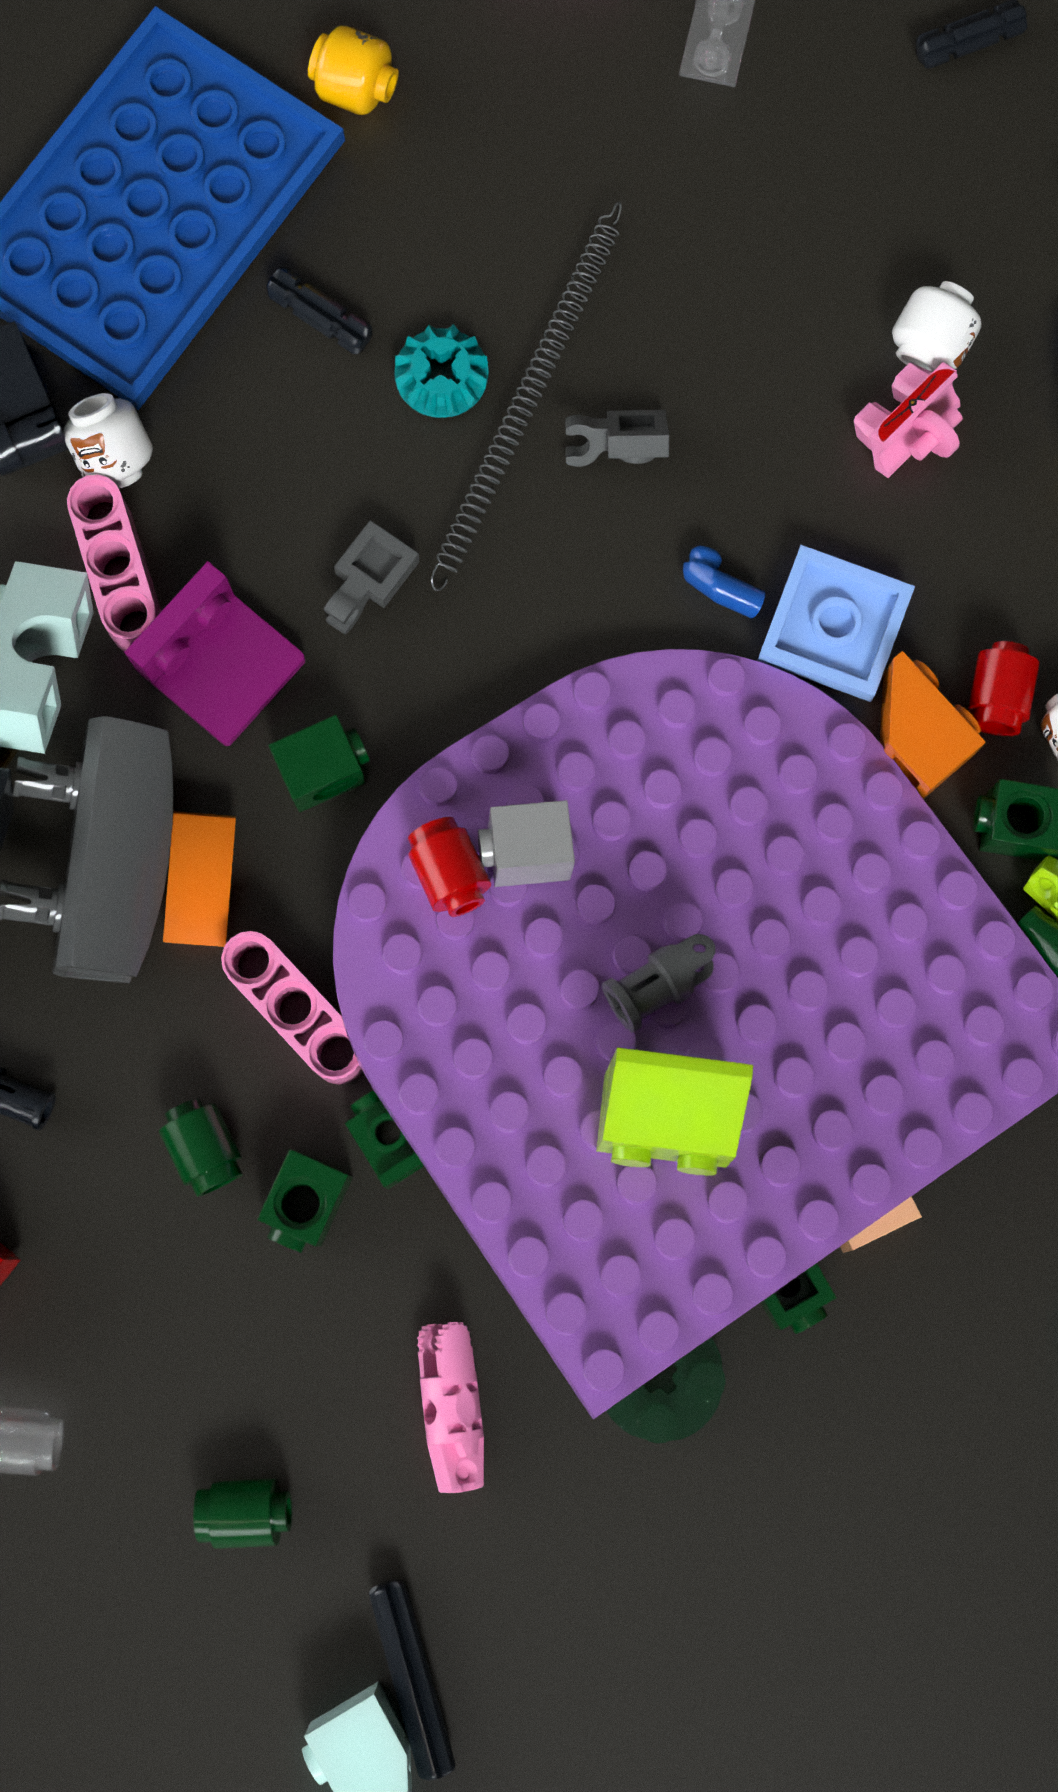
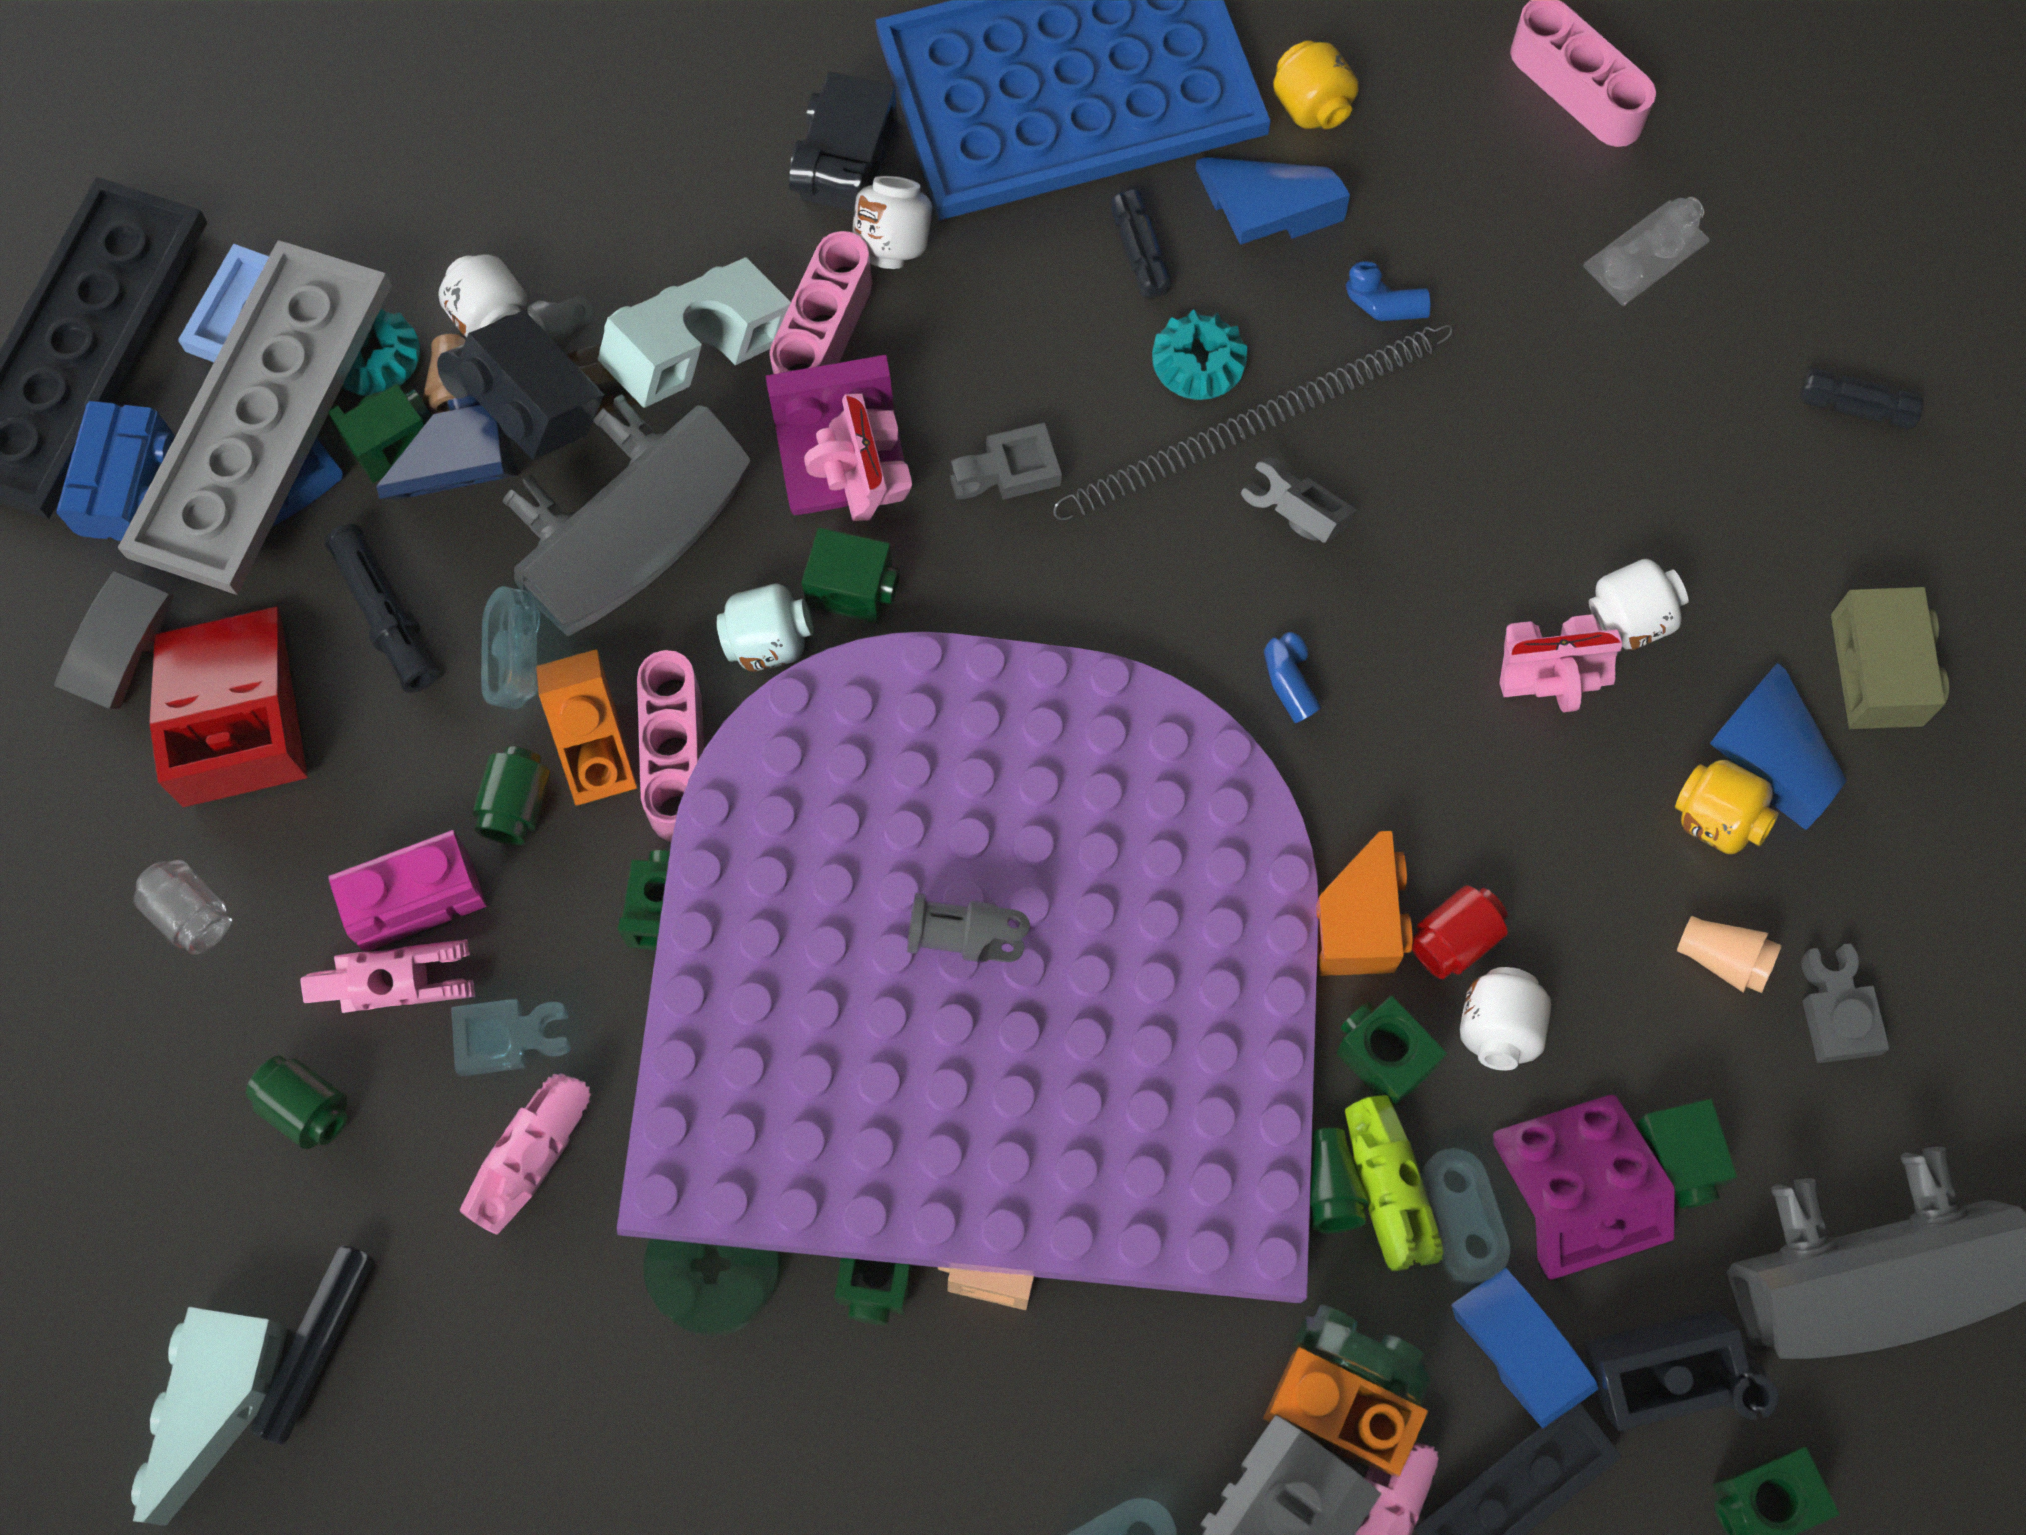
camera: 40 degrees right, 10 degrees down
(96, 1030) = (509, 648): none -> clear light blue plate
(186, 1287) = (407, 891): none -> dark pink brick
(199, 879) = (684, 593): orange slope -> none
(209, 1387) = (360, 982): none -> bright pink hinge
(212, 1045) = (585, 727): none -> orange slope
(247, 666) = (850, 458): none -> bright pink hips
(287, 857) = (764, 627): none -> light aqua head
(297, 1172) = (576, 911): dark green brick -> none
(352, 1338) = (496, 1034): none -> clear light blue plate
(391, 191) = (1273, 196): none -> blue slope
(448, 867) = (870, 712): red brick -> none
(528, 843) = (948, 743): light grey brick -> none
(547, 220) = (1380, 301): none -> blue arm
(672, 1110) = (879, 1026): lime slope -> none
(836, 623) = (1360, 775): light blue plate -> none

